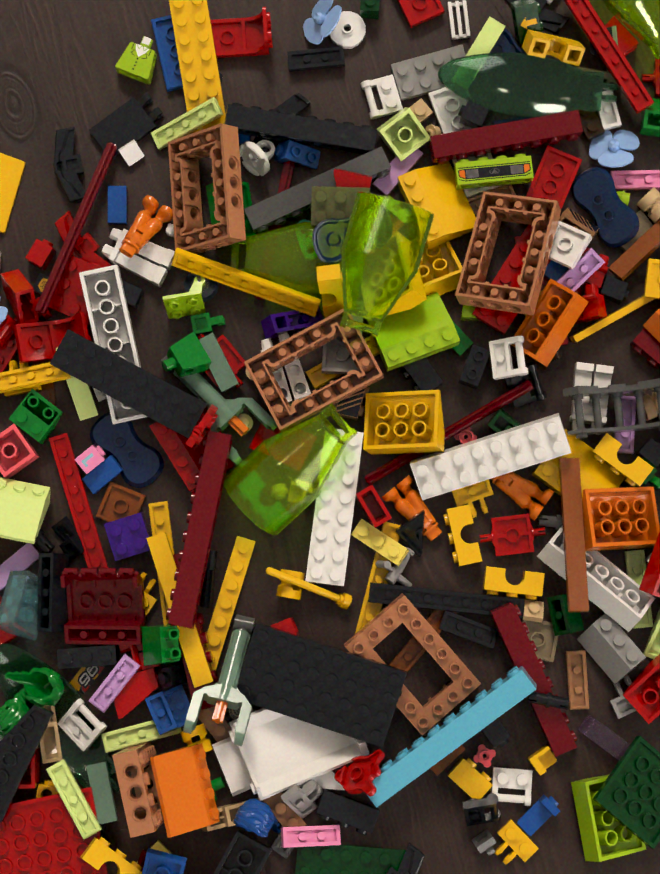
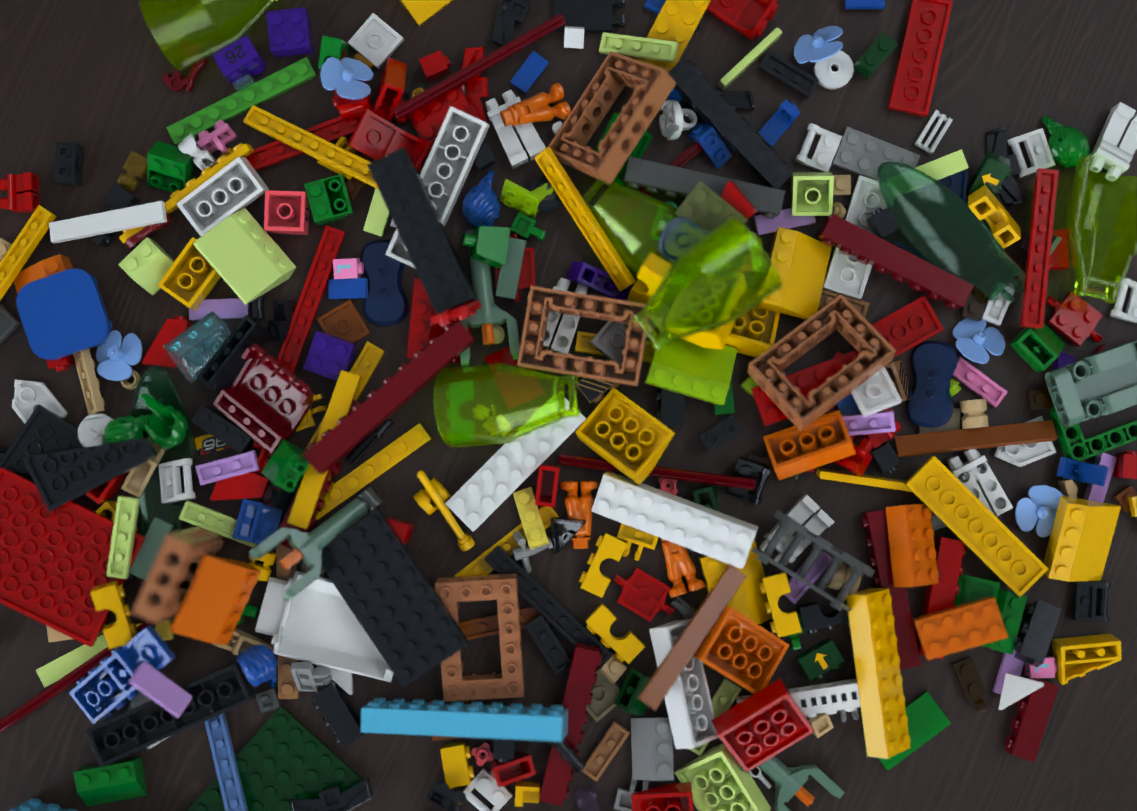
camera: 30 degrees right, 5 degrees up
(156, 330) = (481, 203): none -> blue hair
(277, 70) = (750, 58): none -> yellowish green tile
(310, 836) = (293, 711): bright pink plate -> none
(337, 99) = (779, 122): none -> blue bracket
(361, 773) = (369, 694): red tile -> none
(493, 172) = (862, 284): lime brick -> none
(502, 359) = (747, 445): white plate -> none
(518, 745) = (514, 770): none -> red torso

